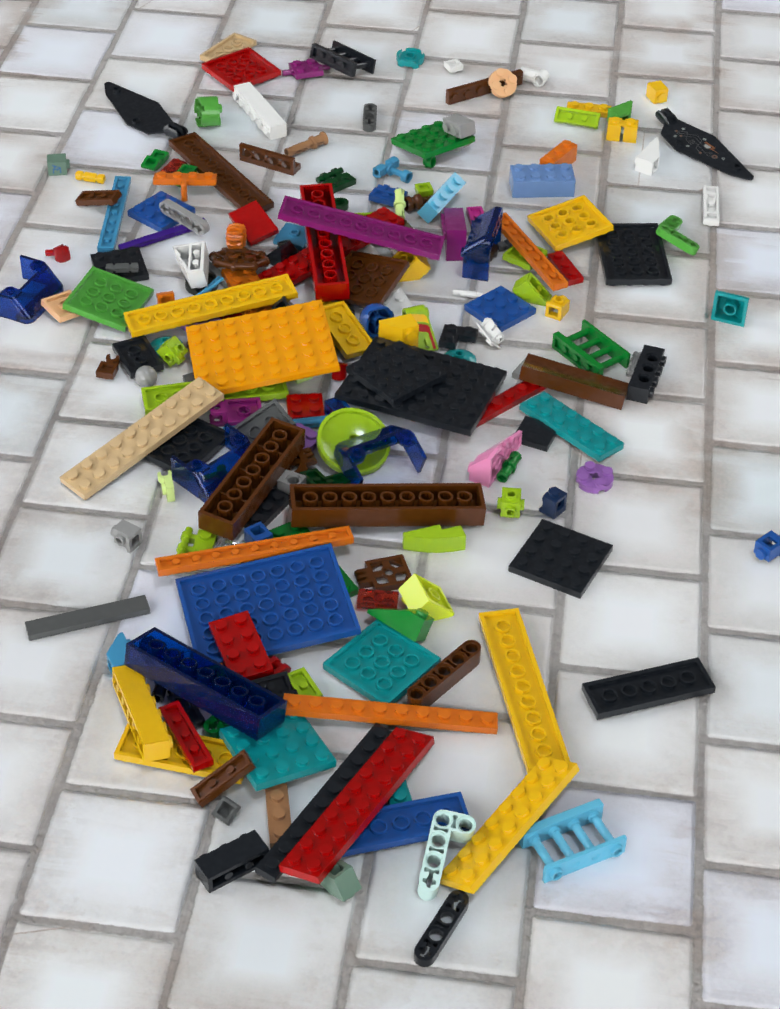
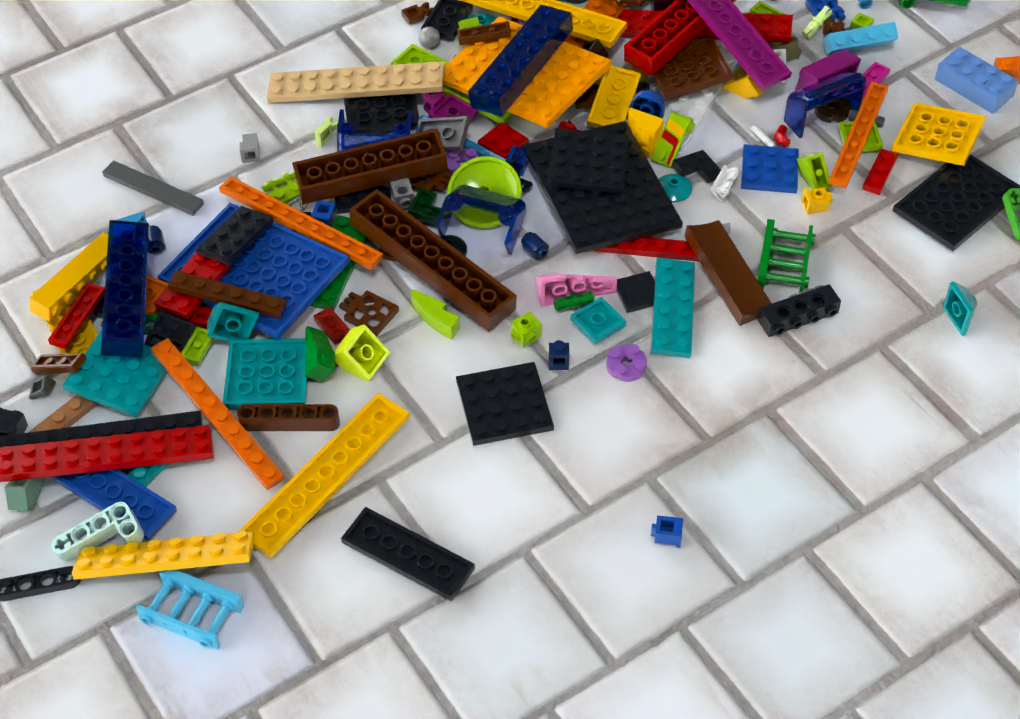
camera: 50 degrees right, 10 degrees up
(197, 342) = (484, 33): none -> reddish brown tile
(225, 591) = (235, 235): none -> black plate
(263, 337) = (520, 60): none -> clear blue brick
(286, 629) = (227, 293): none -> reddish brown plate
(312, 647) = (230, 322): none -> teal slope
(434, 451) = (535, 245): none -> dark blue brick
(479, 286) = (780, 136): none -> red arm
(541, 466) = (598, 320): none -> teal plate

